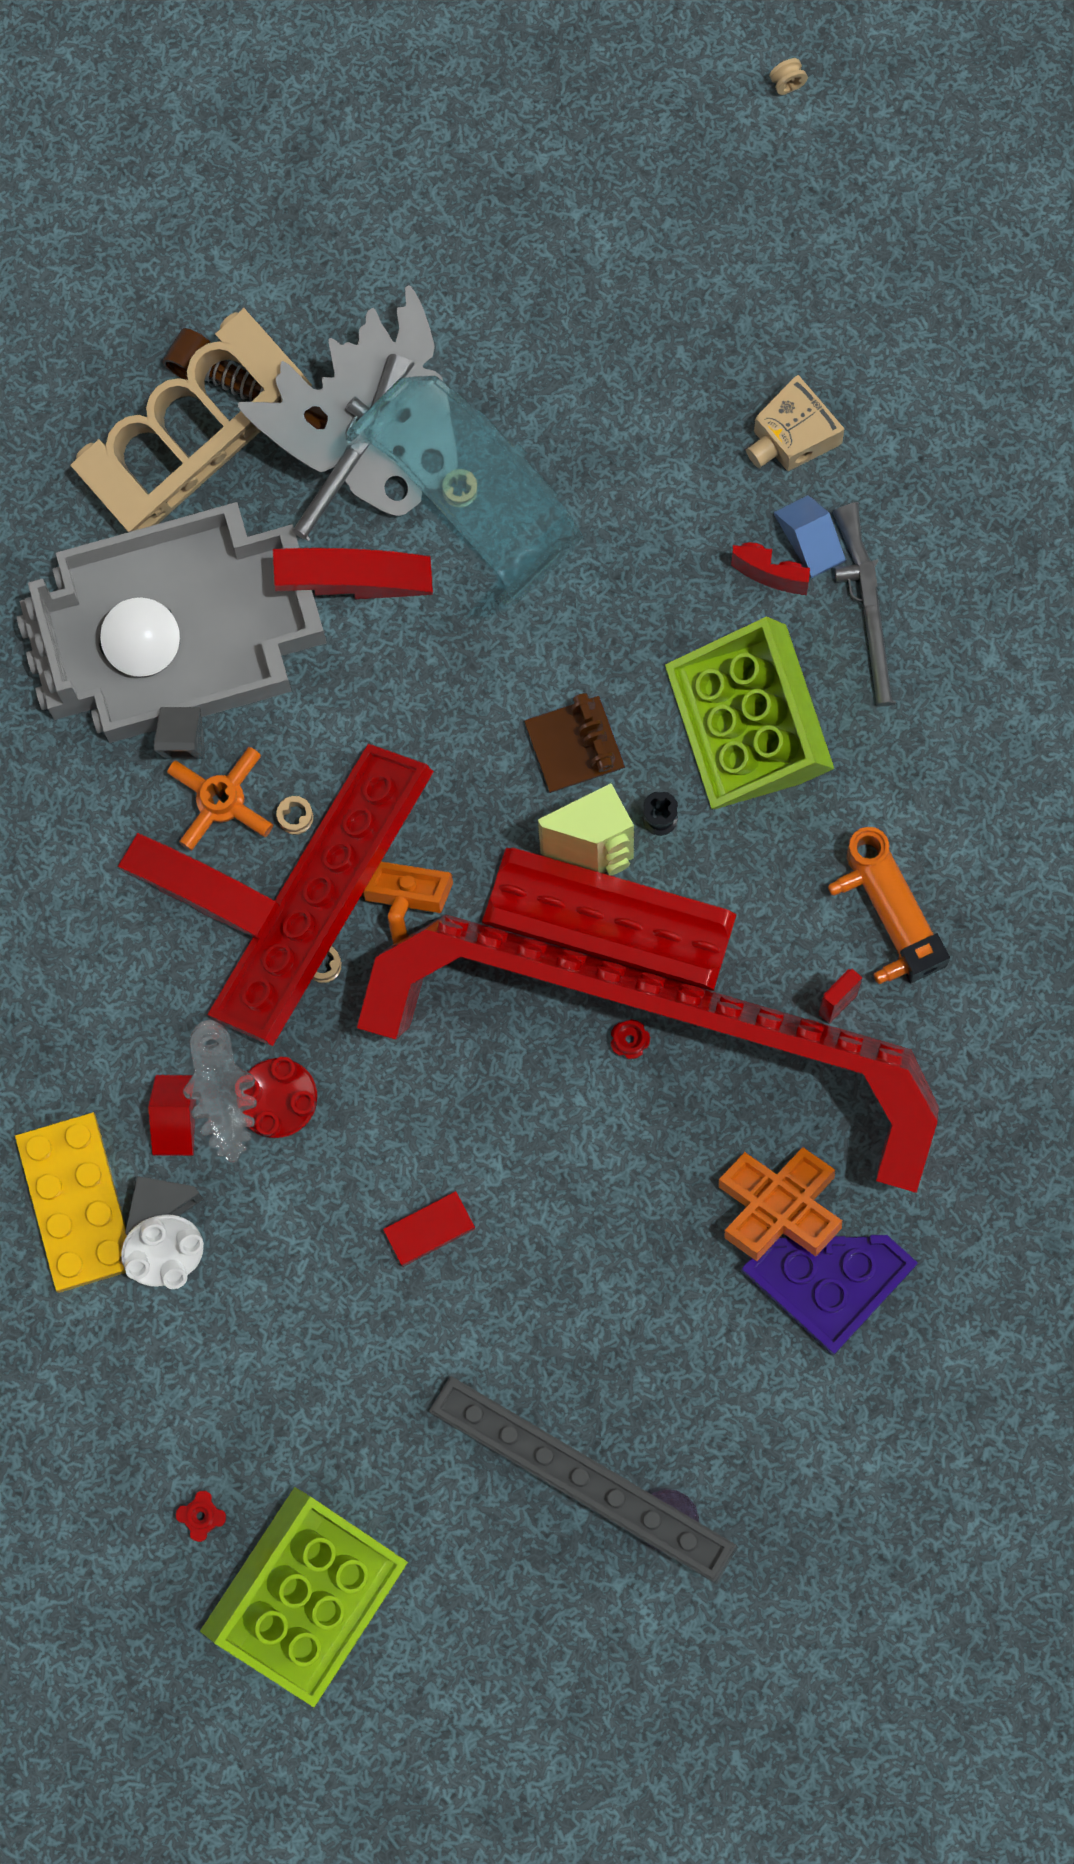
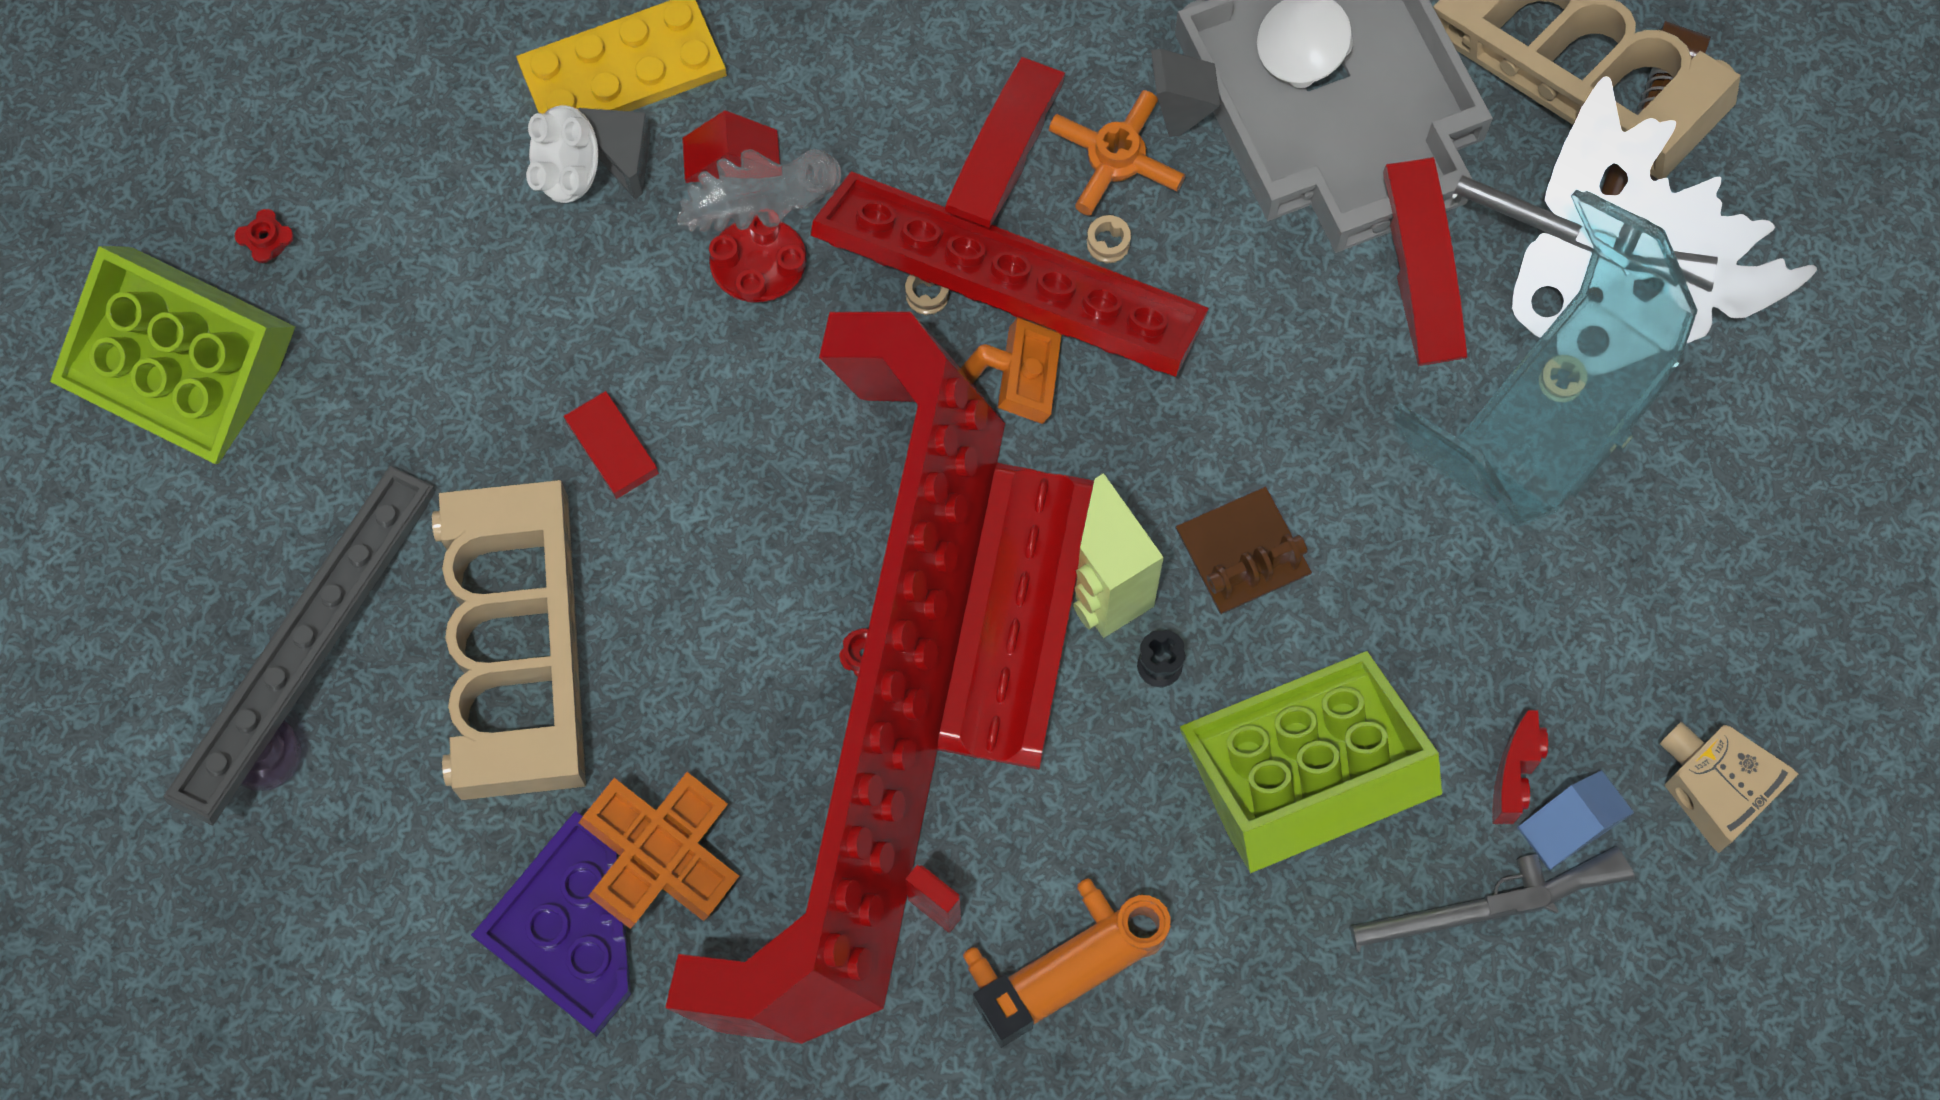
camera: 80 degrees right, 5 degrees down
(489, 1311) = (523, 759): none -> tan fence

